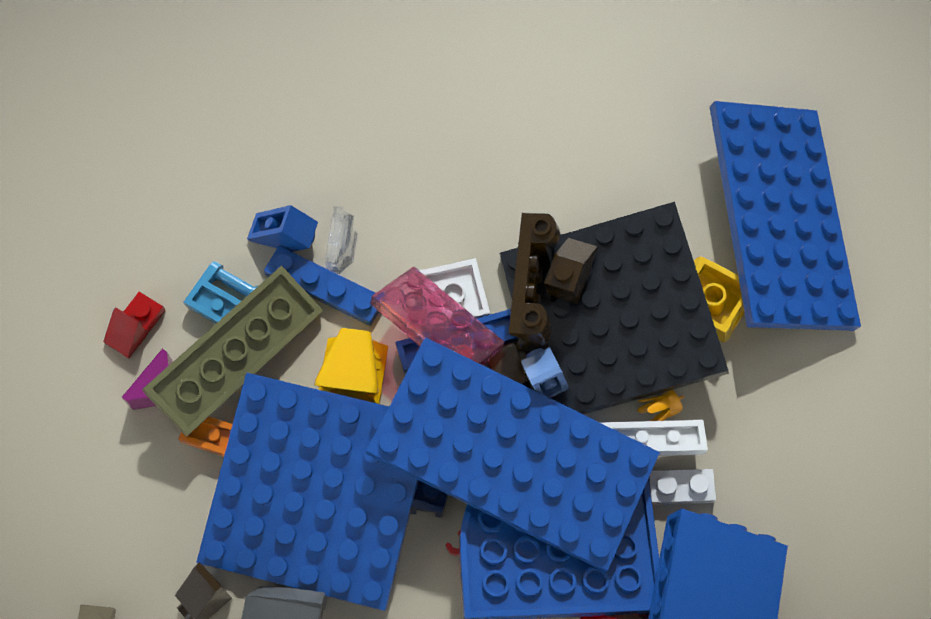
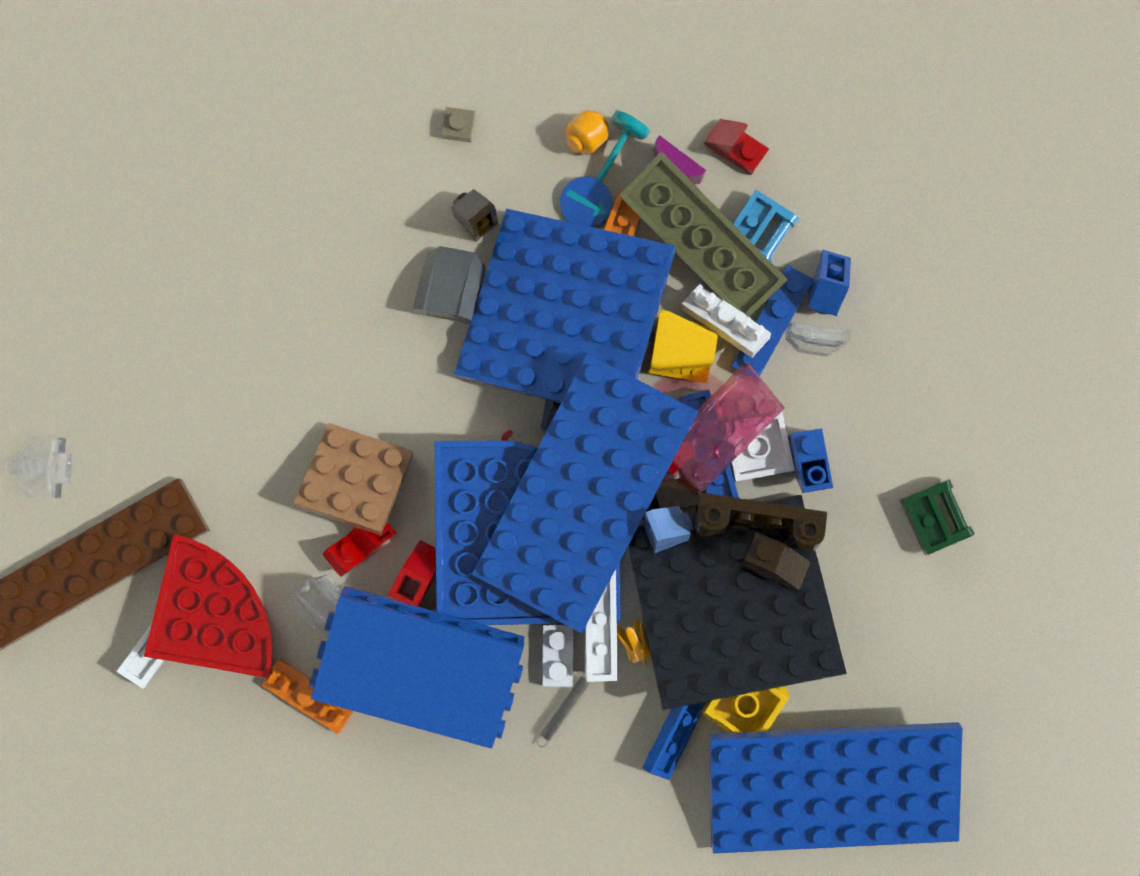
camera: 90 degrees right, 15 degrees up
(112, 477) = (587, 132): none -> light orange head
(187, 476) = (587, 198): none -> piece
(323, 327) = (725, 320): none -> white plate
(466, 241) = (810, 460): none -> blue slope
(516, 139) = (928, 519): none -> dark green plate
(731, 477) = (548, 738): none -> dark grey piece
(759, 369) = (672, 740): none -> blue plate

